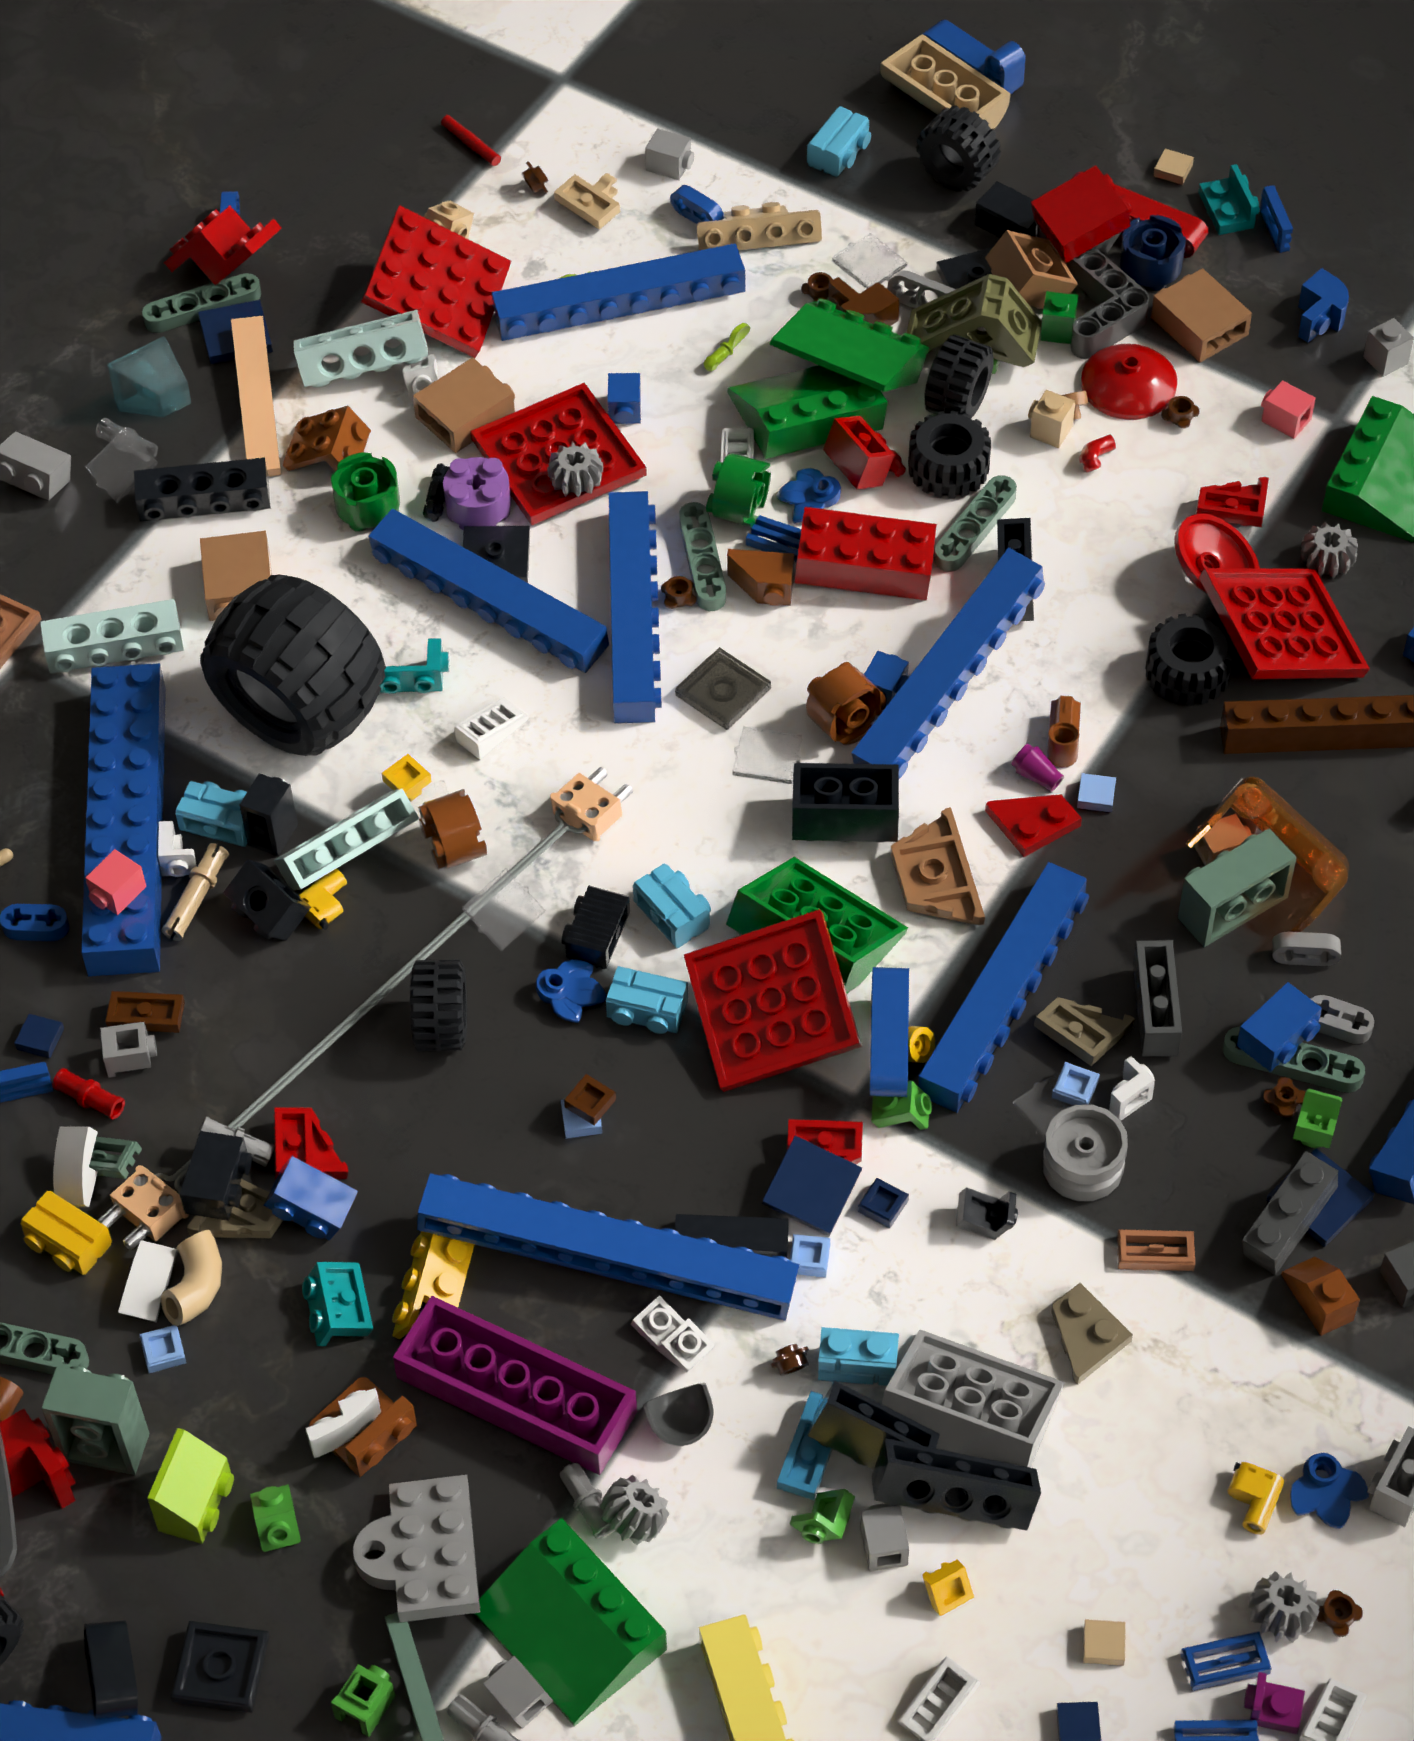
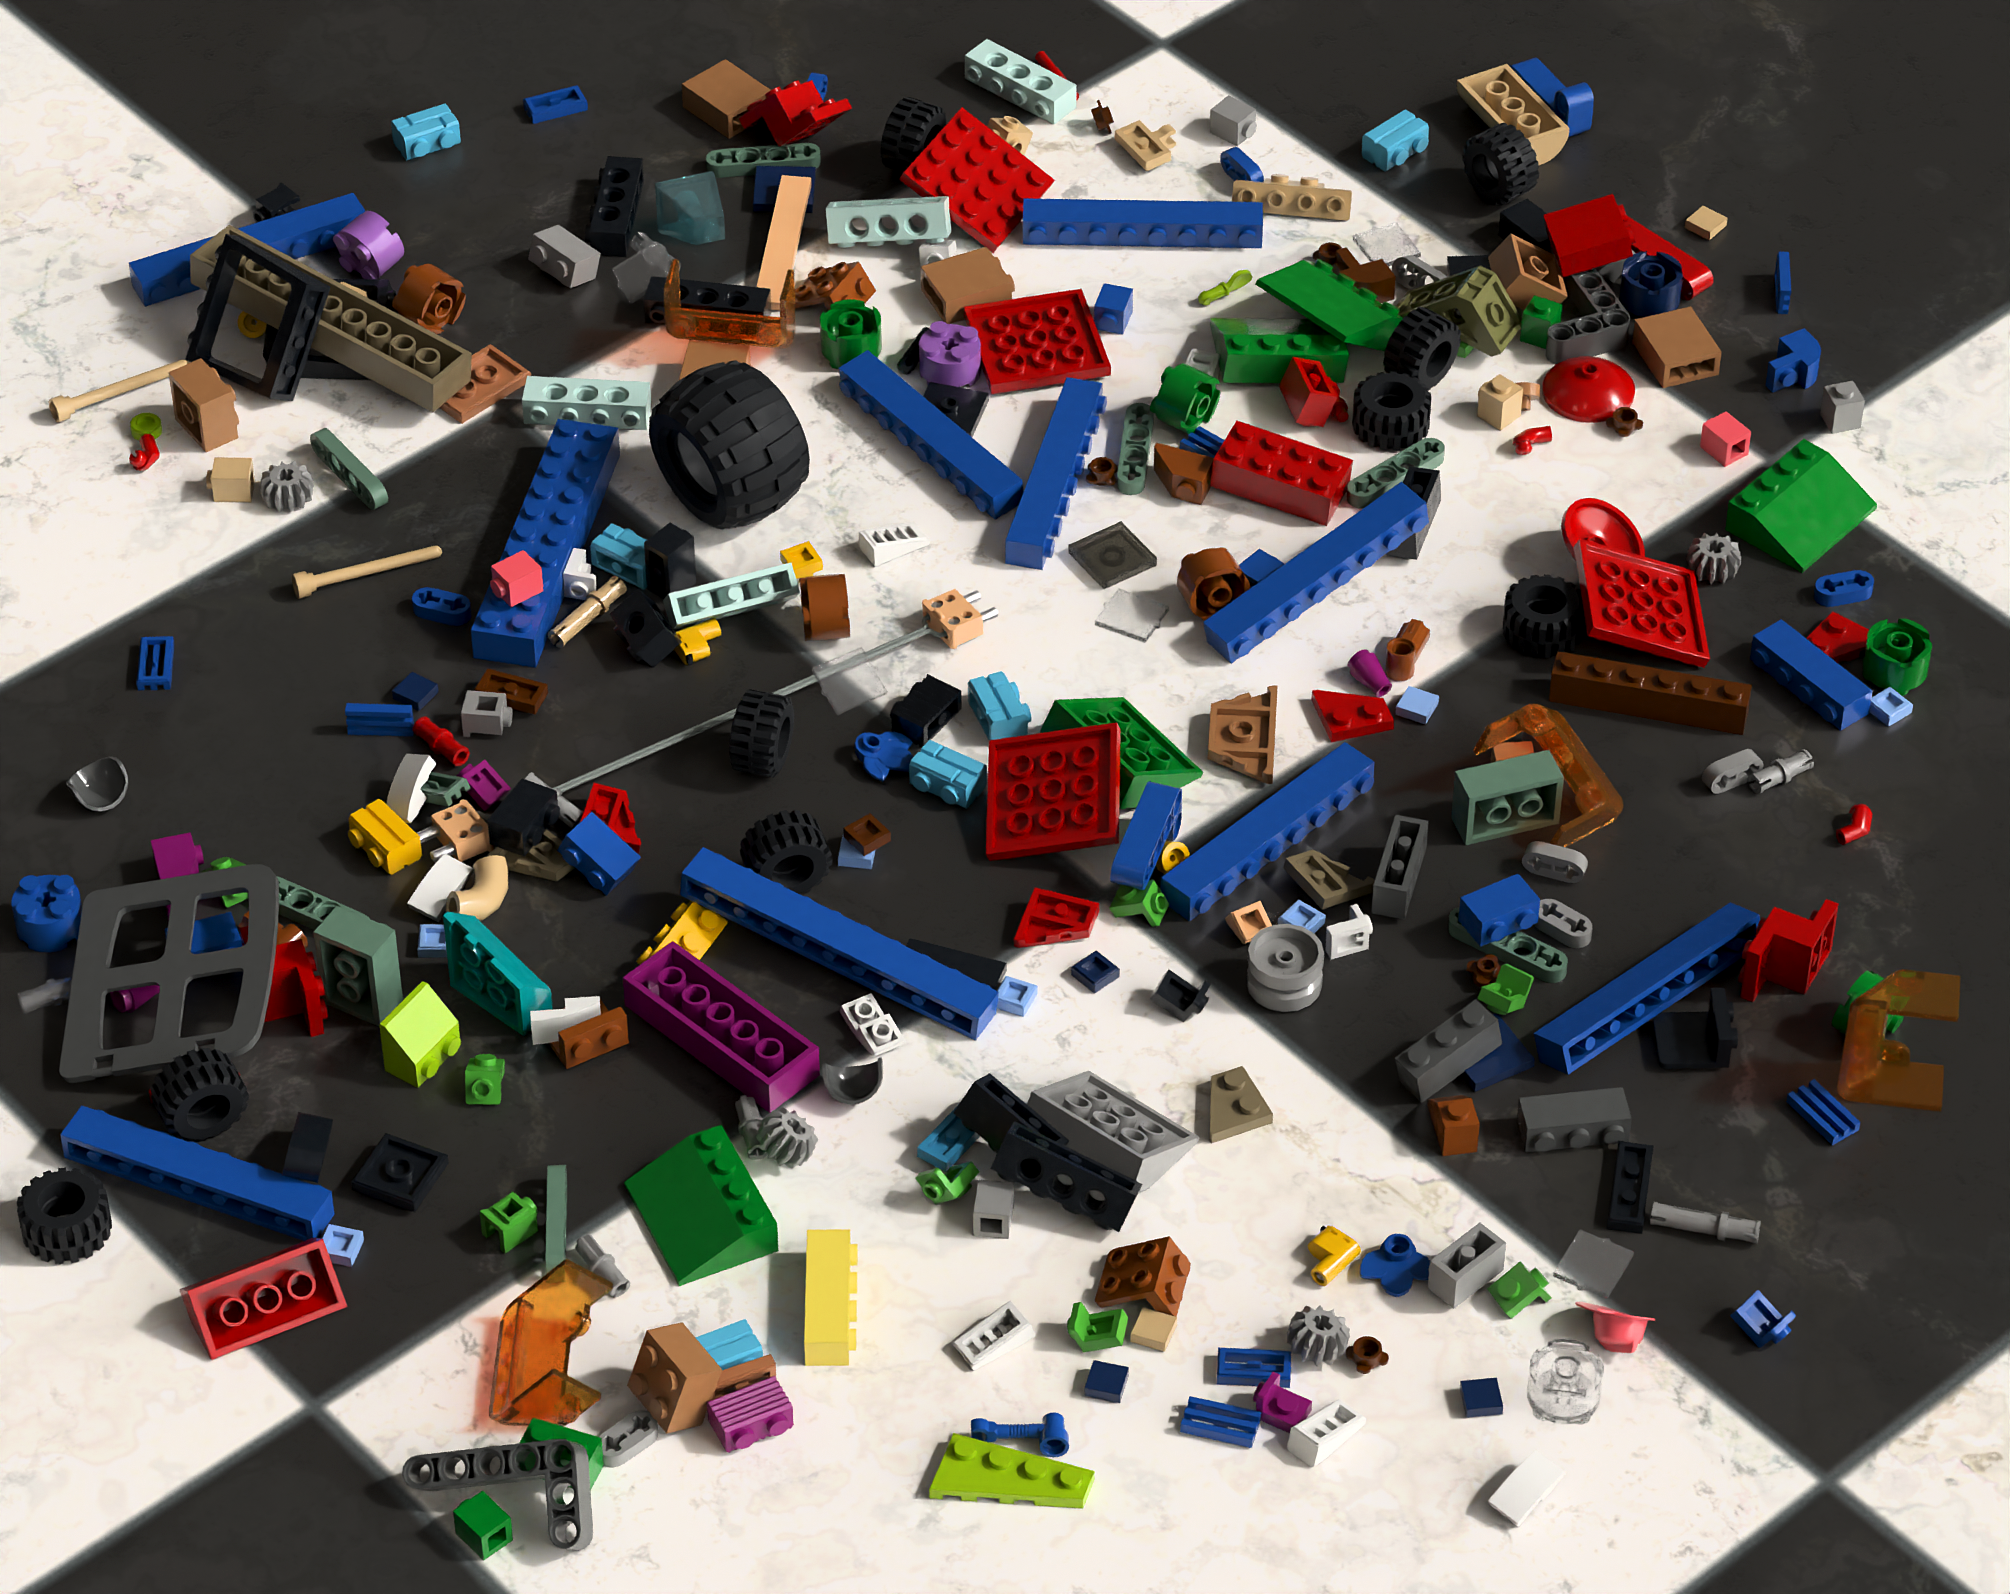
camera: 15 degrees right, 10 degrees down
(66, 392) = (615, 206): none -> black brick
(138, 239) = (722, 96): none -> medium nougat brick
(154, 1137) = (485, 784): none -> magenta bracket
(238, 512) = (726, 326): none -> clear orange windscreen
(248, 1386) = (491, 973): none -> teal wedge
(336, 1301) = (594, 936): teal bracket -> none
(353, 245) = (909, 132): none -> black tyre
(419, 678) = (842, 489): teal bracket -> none
(424, 1549) = (599, 1128): light grey plate -> none
(437, 155) = (1020, 81): none -> light aqua brick
(516, 1149) = (787, 850): none -> black tyre
(517, 1691) = (639, 1244): light grey brick -> none
(575, 469) = (1043, 352): light grey gear -> none
(790, 1359) = (965, 1064): reddish brown plate -> none
(810, 490) = (1256, 413): blue plate -> none
(812, 1185) = (1035, 941): dark blue tile -> none
(845, 802) = (1181, 659): black brick -> none
(857, 1356) = (1023, 1068): medium azure brick -> none
(948, 1587) = (1033, 1256): yellow tile -> none
(1023, 1102) = (1248, 921): none -> light nougat slope
(1048, 1661) = (1097, 1329): none -> bright green bracket
(1072, 1580) = (1147, 1271): none -> dark orange bracket
(1156, 1256) = (1319, 1062): nougat tile -> none
(1230, 202) = (1746, 262): teal bracket -> none
(1235, 503) = (1643, 504): red wing -> none

